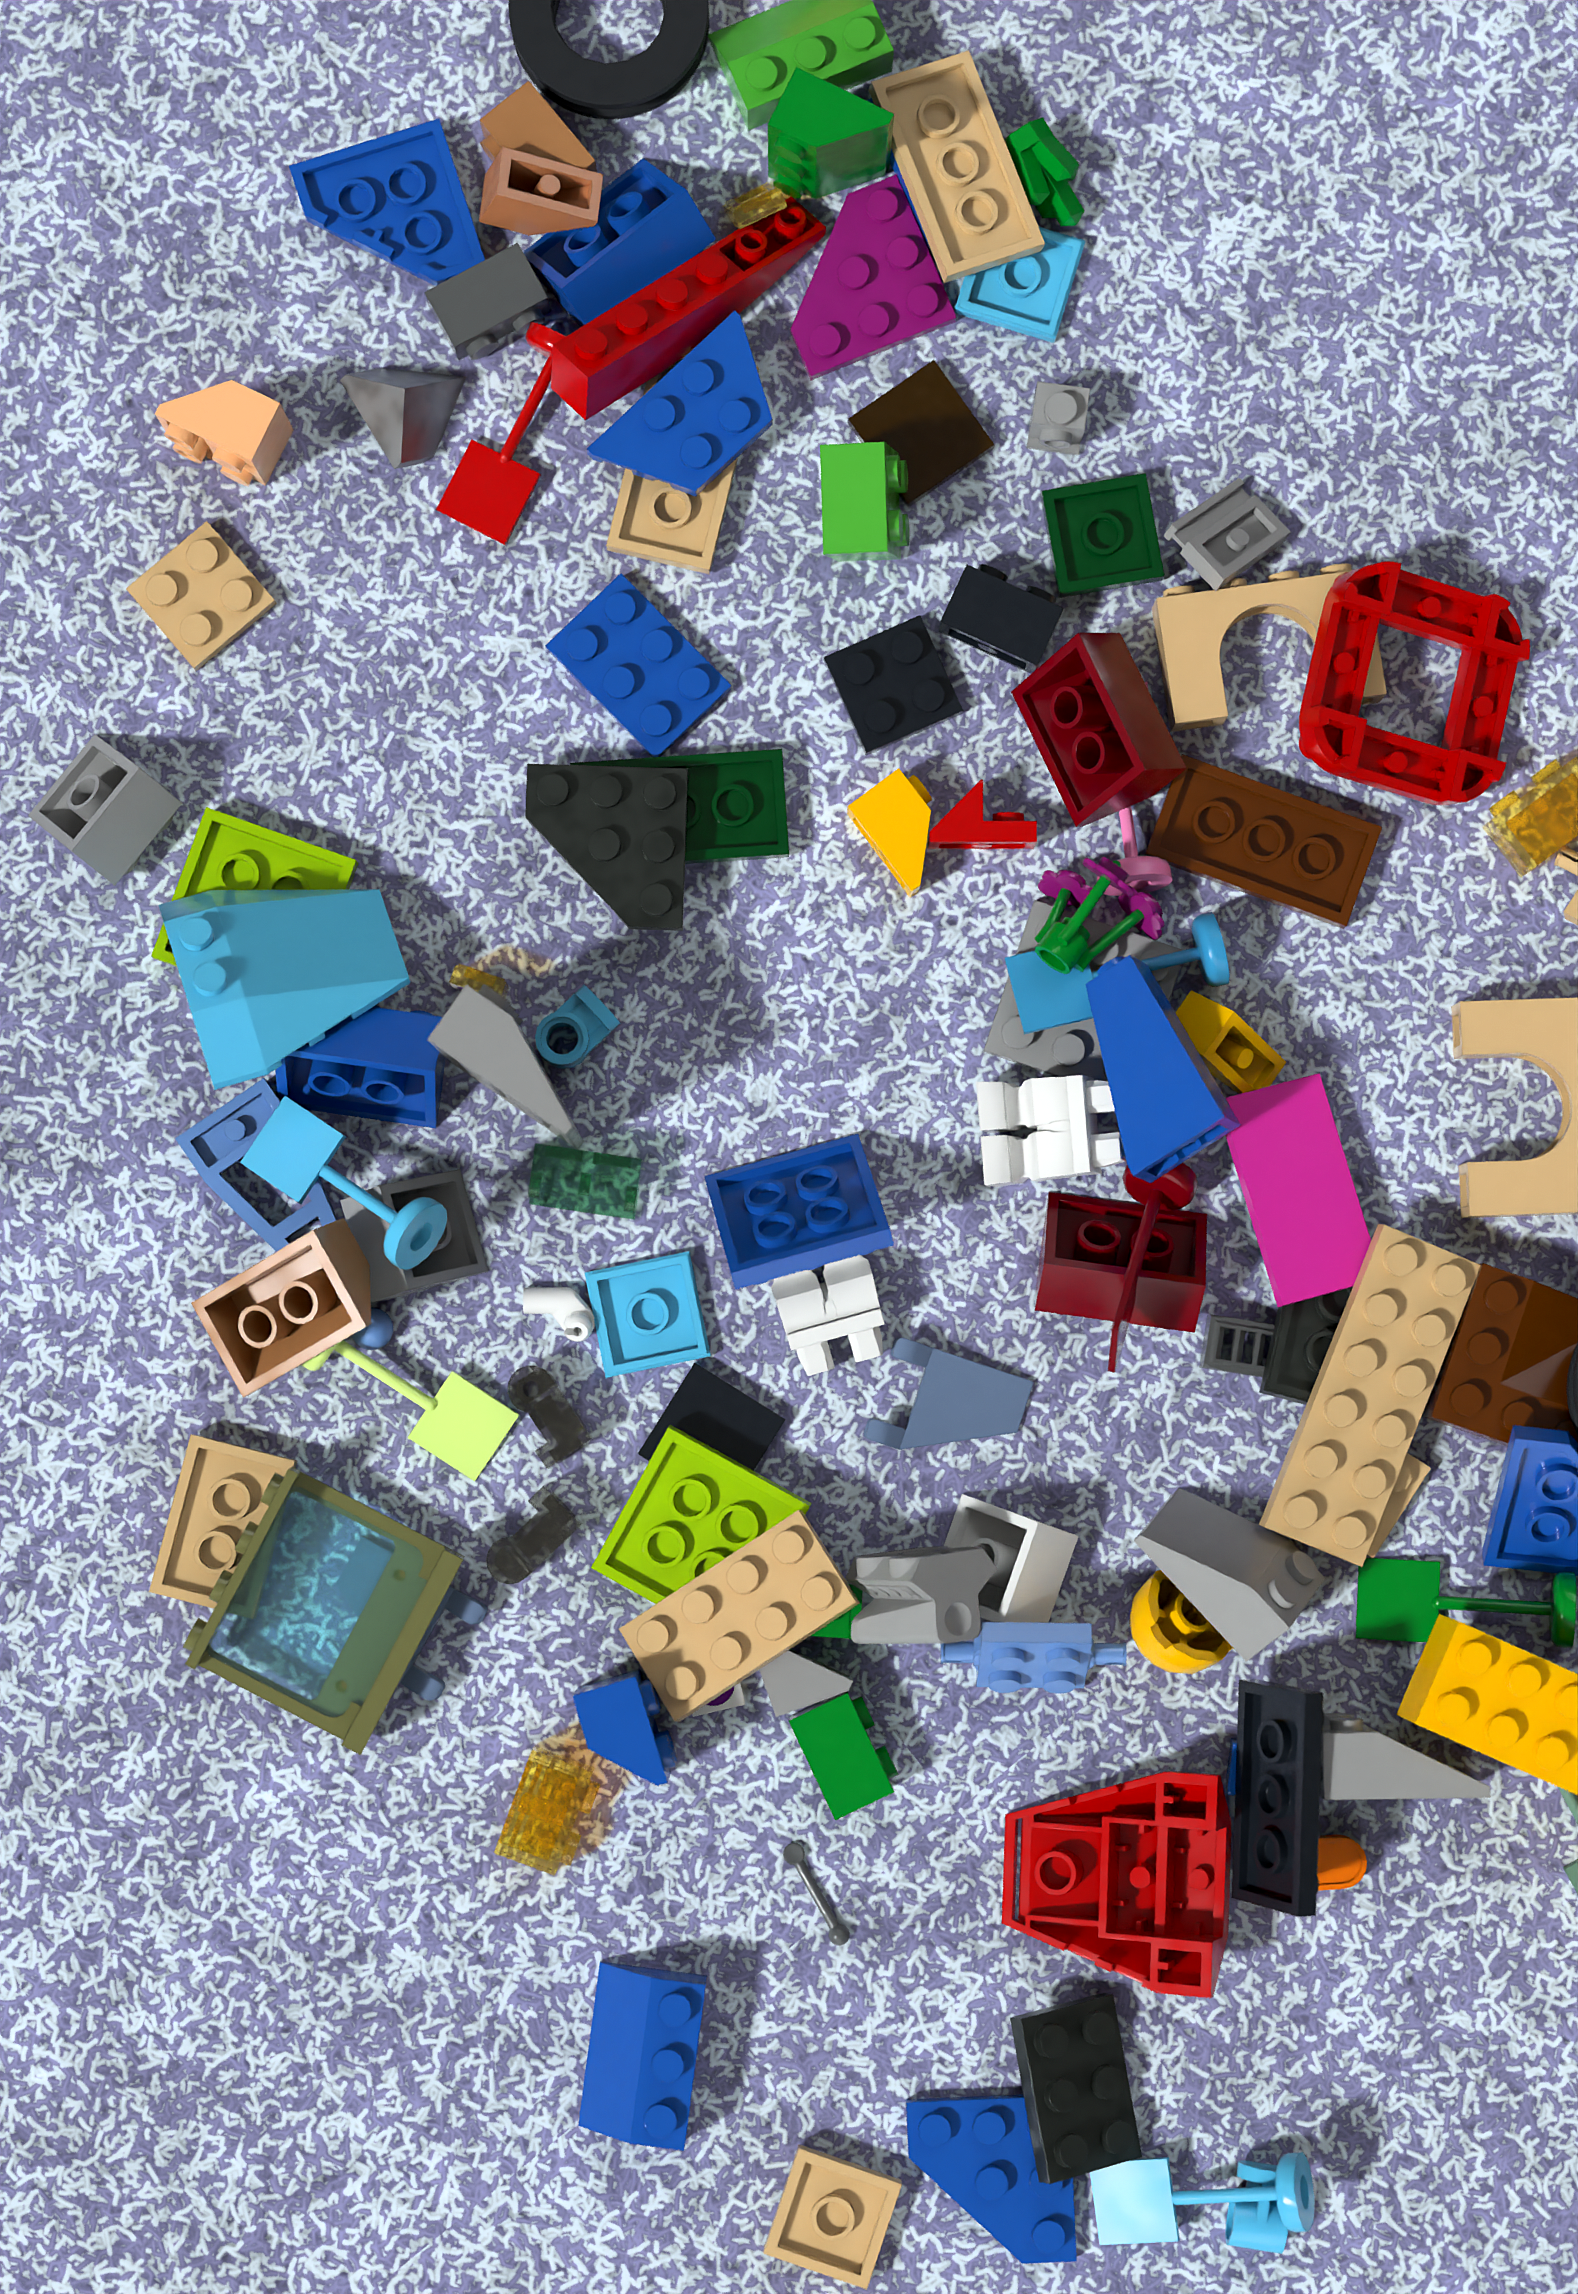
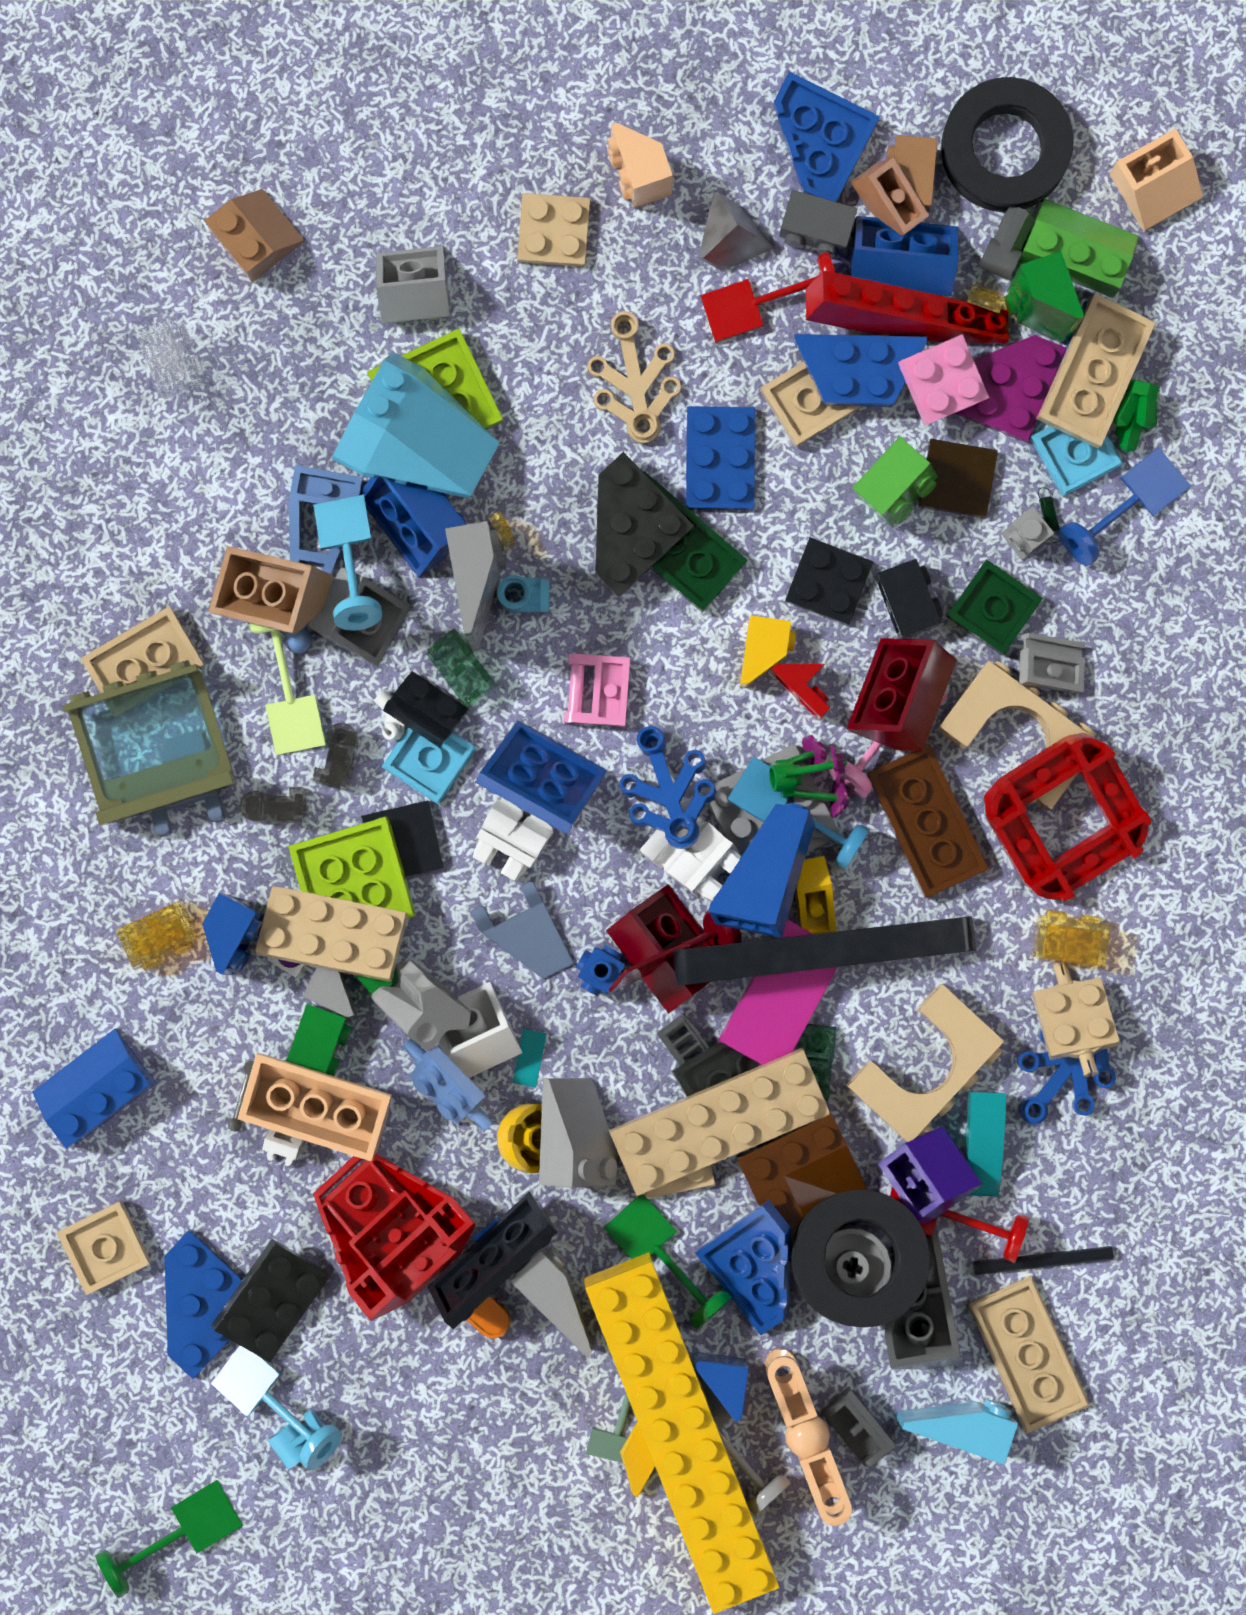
camera: 50 degrees right, 0 degrees up
(463, 678) = (635, 384): none -> tan plant
(592, 1265) = (425, 709): none -> black plate
(720, 129) = (1004, 250): none -> dark grey piece
(775, 1046) = (609, 690): none -> bright pink plate
(801, 339) = (943, 380): none -> bright pink plate
(913, 1825) = (315, 1107): none -> light nougat slope
(914, 1897) = (282, 1145): none -> white tile
(955, 1091) = (669, 794): none -> blue plant
(1053, 1364) = (587, 966): none -> blue brick
(1057, 373) = (1049, 512): none -> dark green piece
(1095, 1540) = (530, 1059): none -> teal window
(1140, 231) = (1151, 481): none -> piece
(1296, 1095) = (823, 950): none -> black beam
(1393, 1203) = (819, 1048): none -> clear green slope

